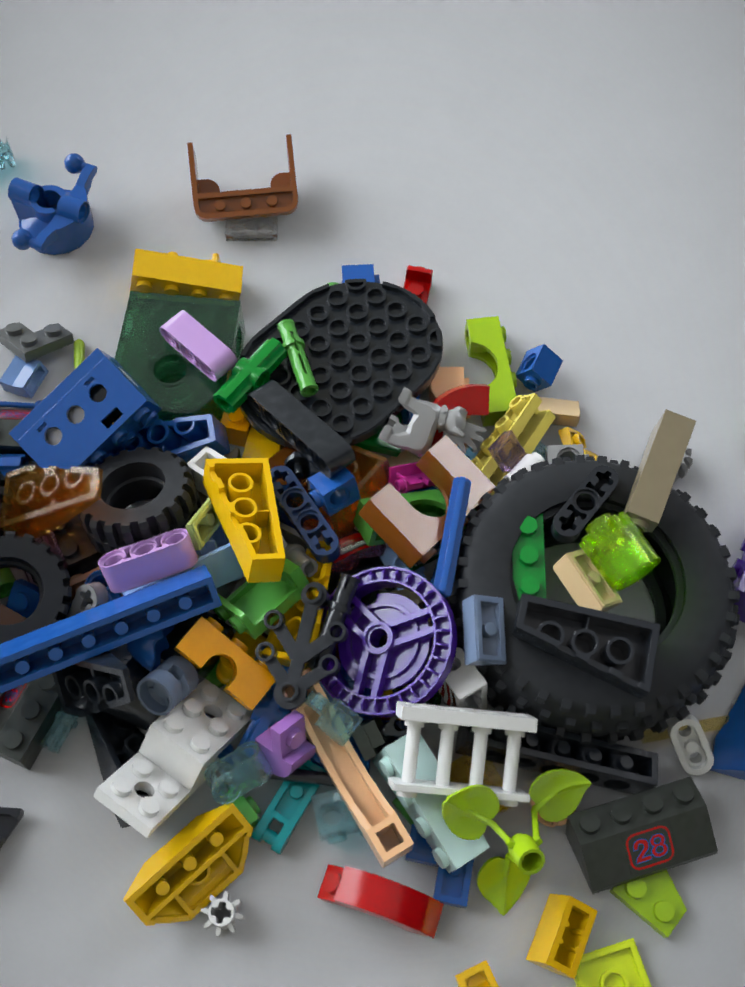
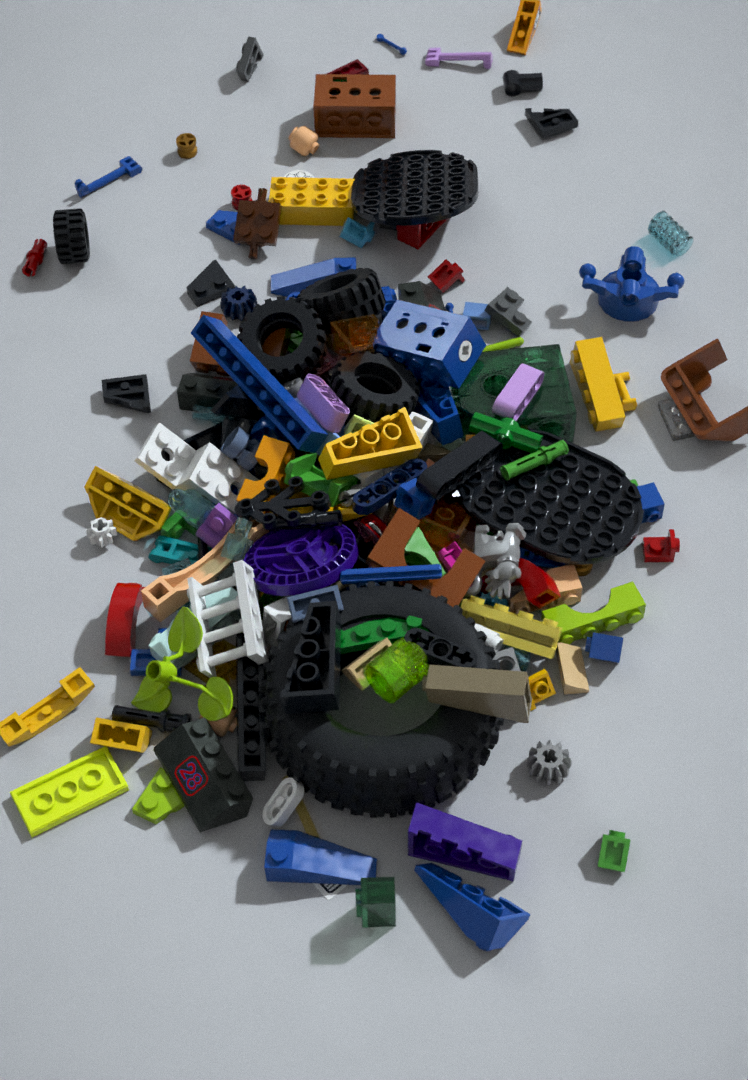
camera: 80 degrees right, 10 degrees down
(507, 451) = (495, 616): tile -> none
(539, 891) = (163, 721): none -> black pin

